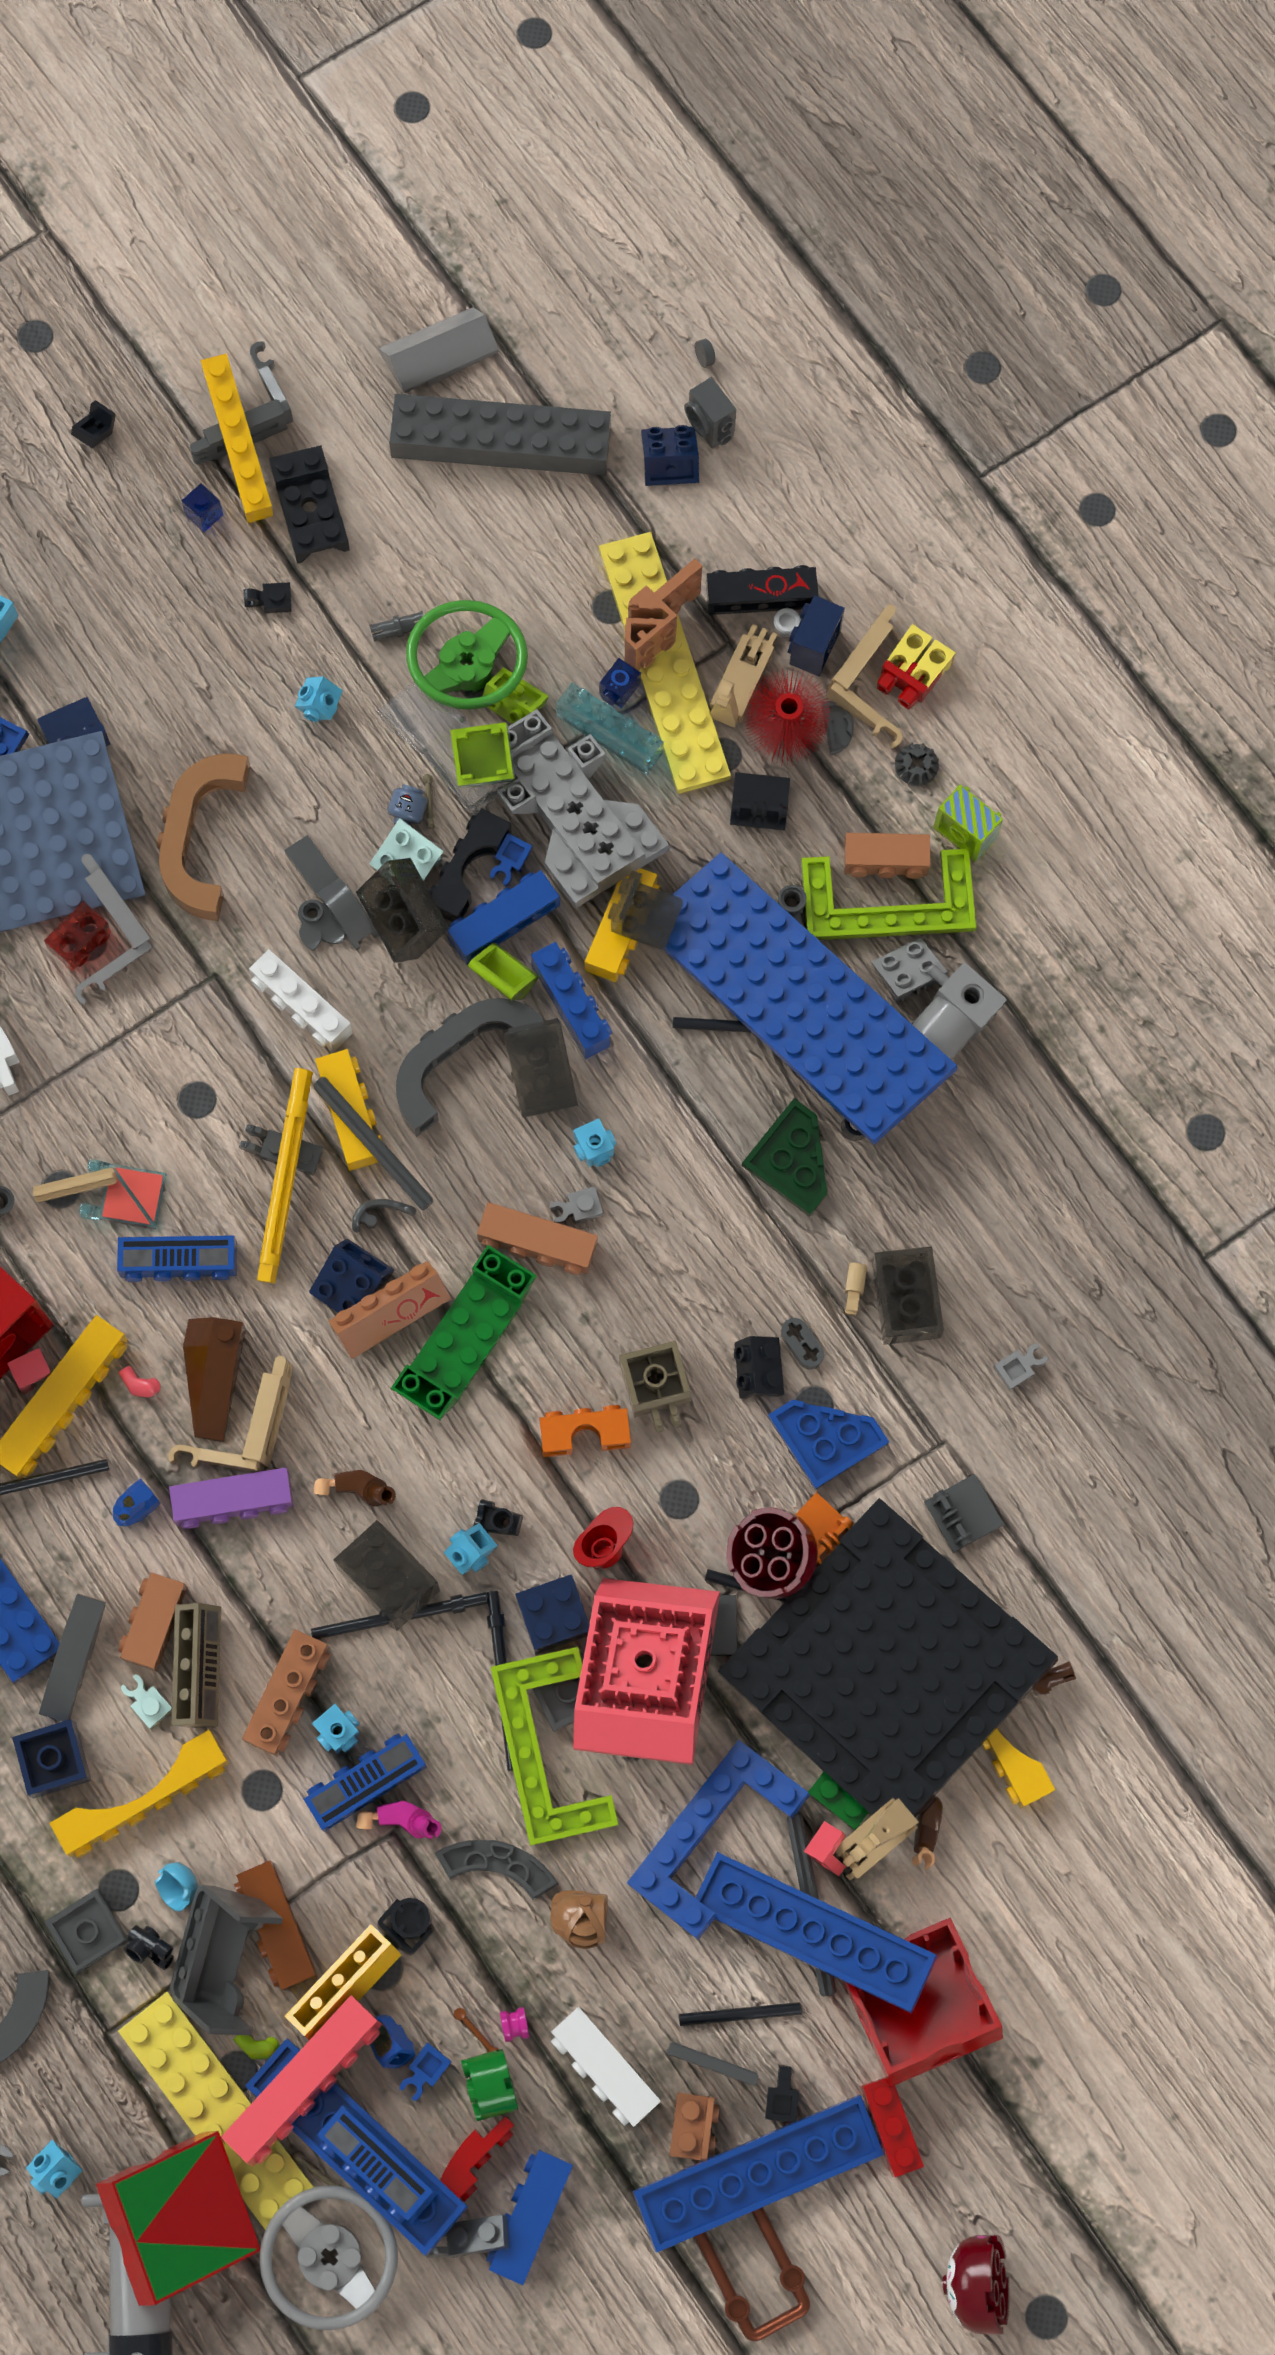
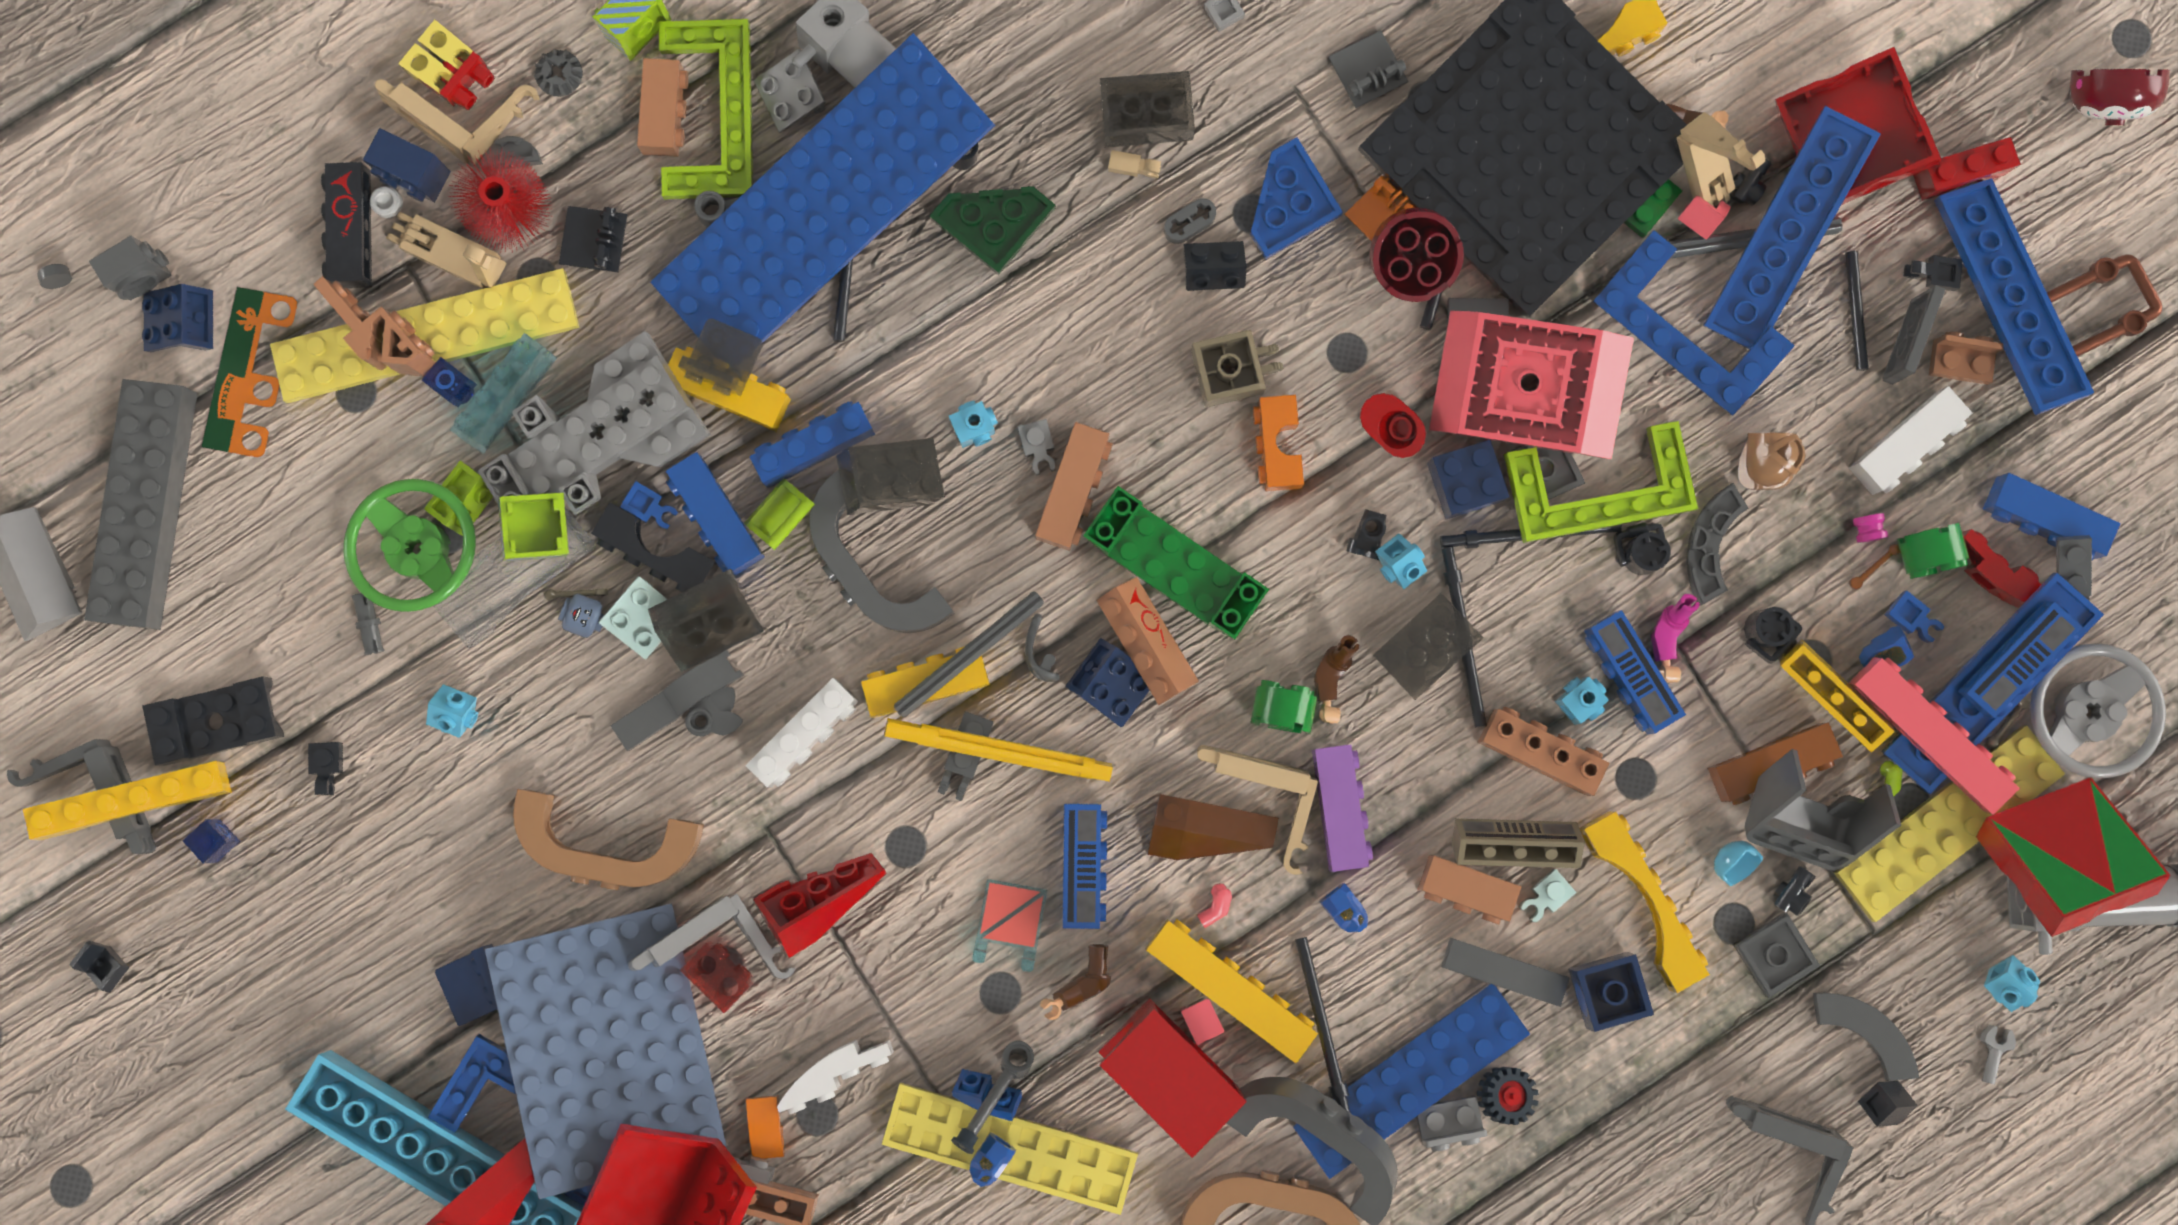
camera: 90 degrees left, 10 degrees up
(62, 1260) = (1083, 987): none -> reddish brown arm
(74, 1185) = (999, 976): tan axle -> none
(138, 1010) = (807, 909): none -> red wedge
(326, 1437) = (1284, 708): none -> green brick
(485, 1791) = (1646, 551): none -> black piece
(622, 505) = (235, 376): none -> piece
(863, 1895) = (1748, 186): none -> black plate

